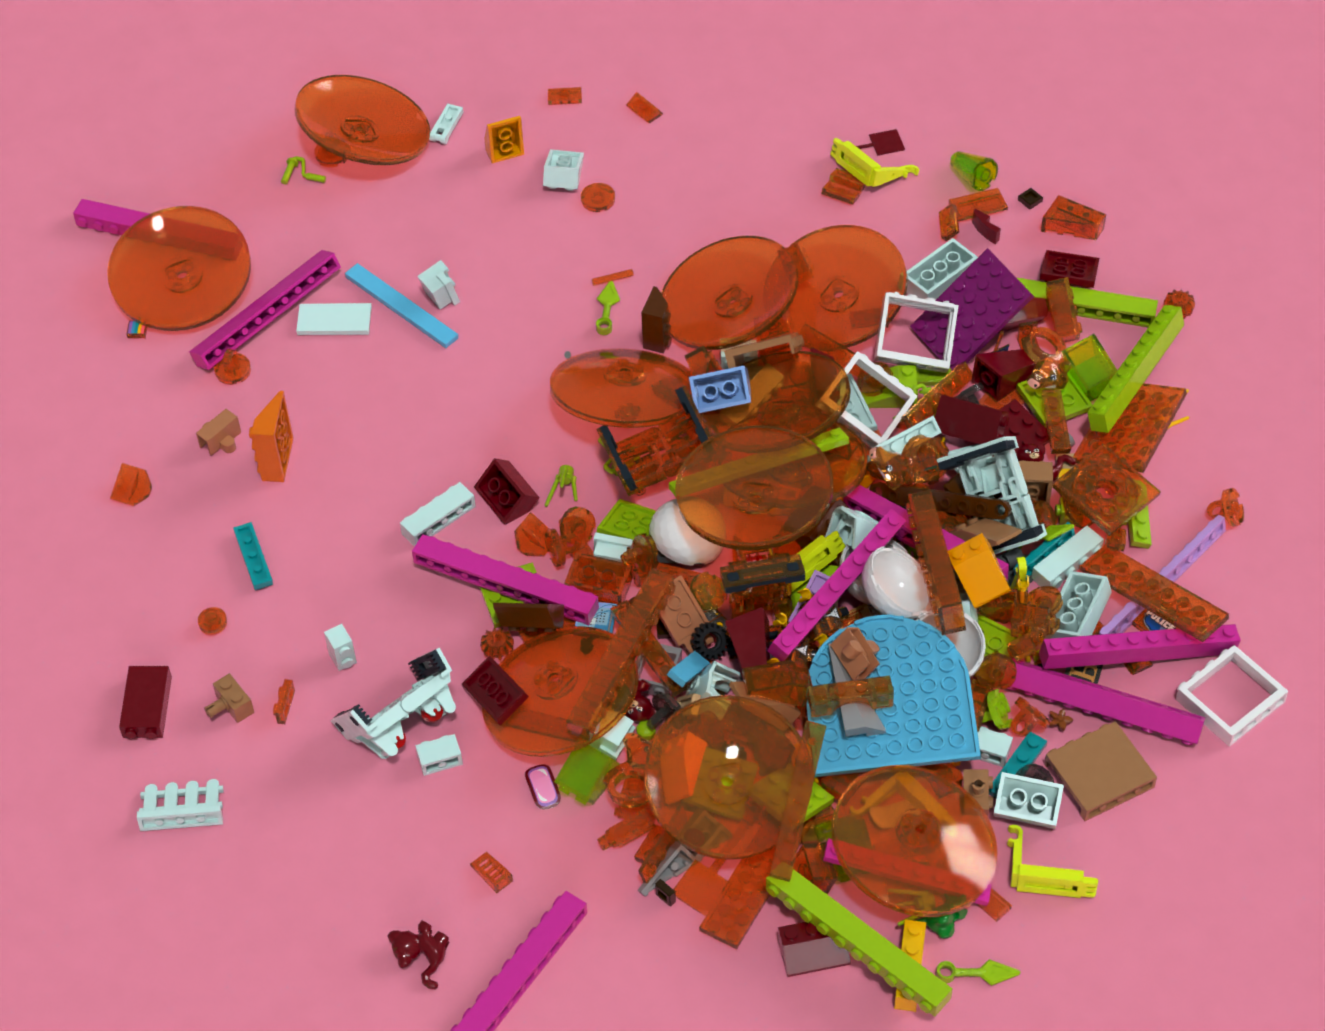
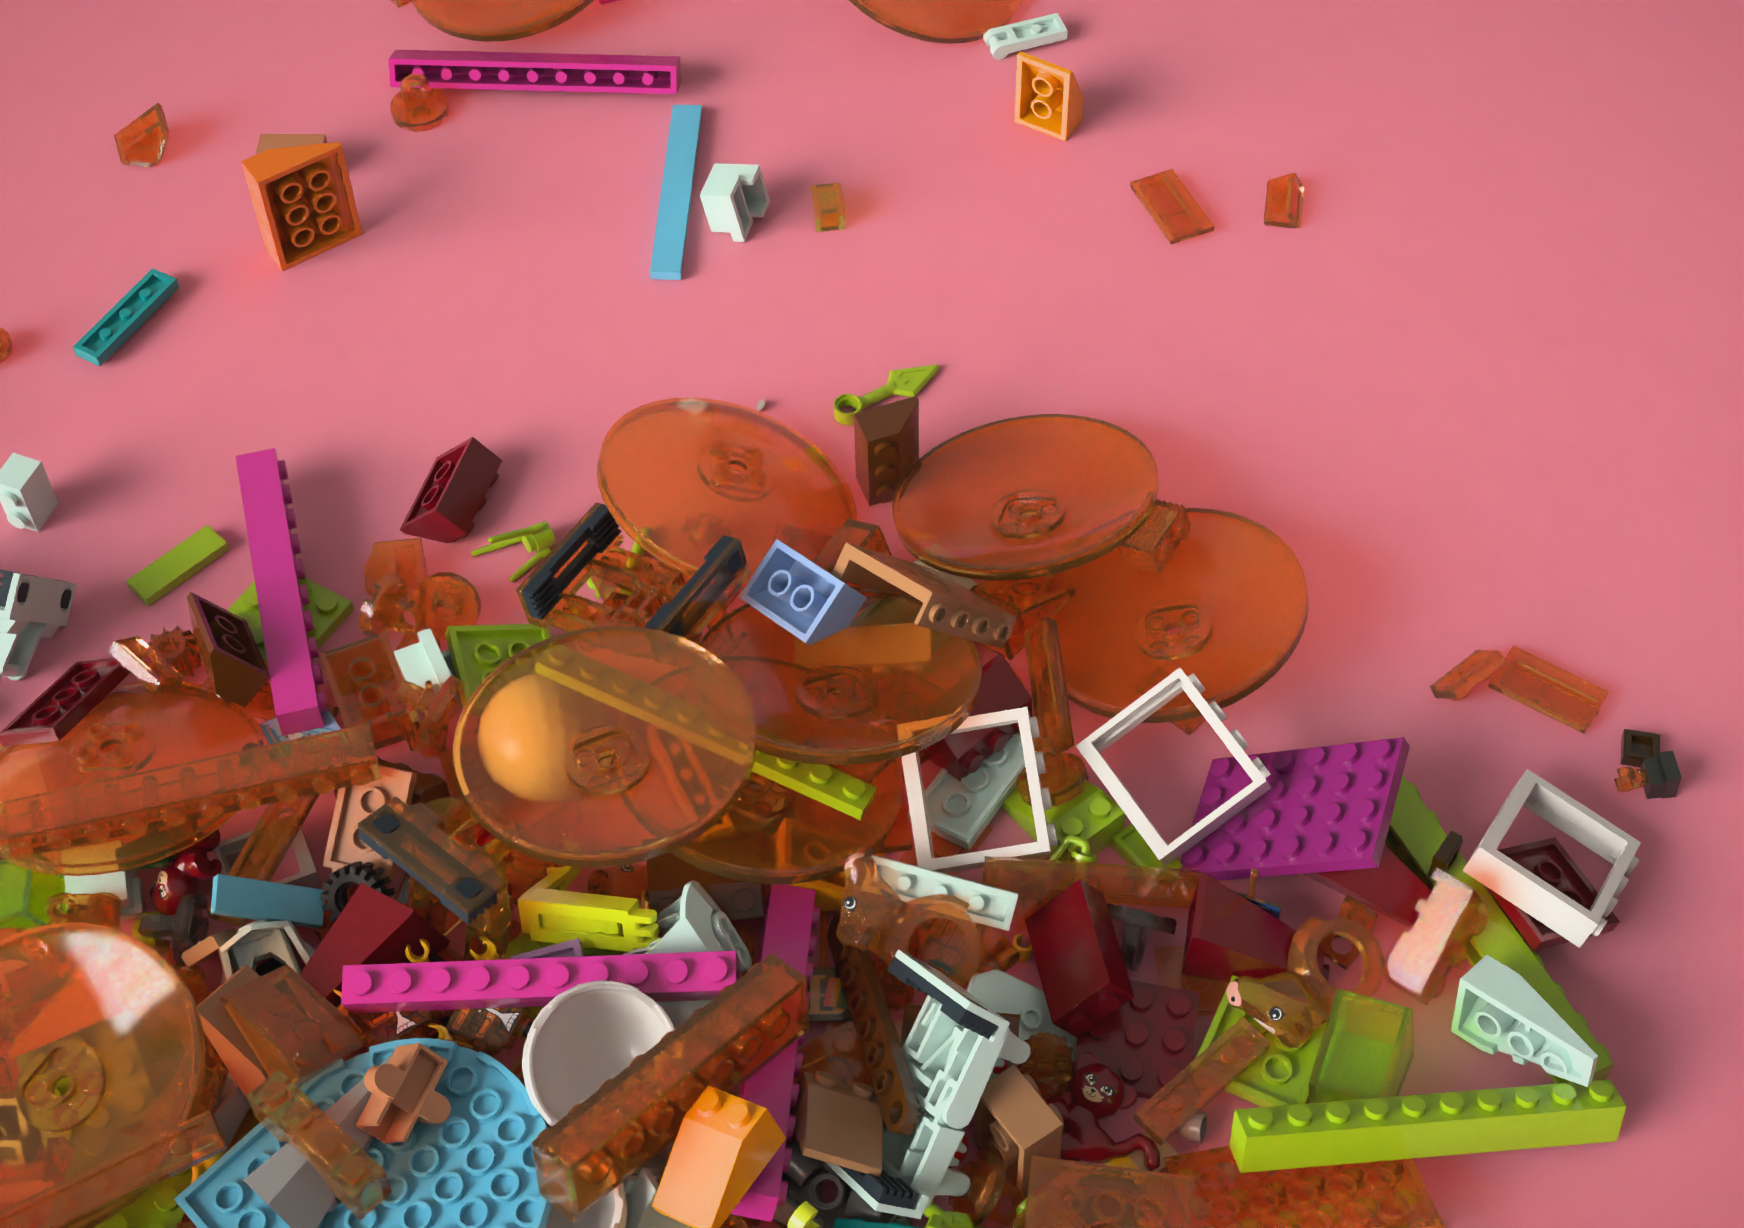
camera: 50 degrees right, 0 degrees up
(334, 319) = (591, 145): light aqua tile -> none
(438, 513) = (347, 449): light aqua brick -> none
(439, 617) = (177, 565): none -> lime tile
(477, 258) = (828, 207): none -> clear yellow brick
(511, 649) = (146, 664): none -> clear orange plate
(563, 169) = (1074, 189): light aqua slope -> none
(564, 96) = (1209, 112): clear orange plate -> none
(598, 197) = (1070, 257): clear orange tile -> none
(606, 144) = (1171, 206): none -> clear orange piece
(611, 277) = (945, 362): clear orange piece -> none
(631, 741) = (95, 909): none -> clear orange piece
(843, 186) = (1397, 505): clear orange slope -> none
(864, 167) = (1445, 503): neon yellow hinge -> none
(885, 142) = (1535, 497): dark red piece -> none
(939, 270) = (1336, 714): light aqua brick -> none
(975, 169) = (1603, 639): clear neon green cone -> none
(984, 227) = (1512, 726): dark red slope -> none
(1029, 245) = (1532, 892): none -> white window
(1032, 282) = (1446, 853): none -> dark brown tile
(1046, 201) = (1657, 775): none -> pearl dark grey piece
(1073, 218) = (1656, 817): clear orange wedge -> none
(1117, 312) = (1506, 1015): none -> light aqua wedge
(1182, 300) = (1651, 1103): clear orange gear -> none

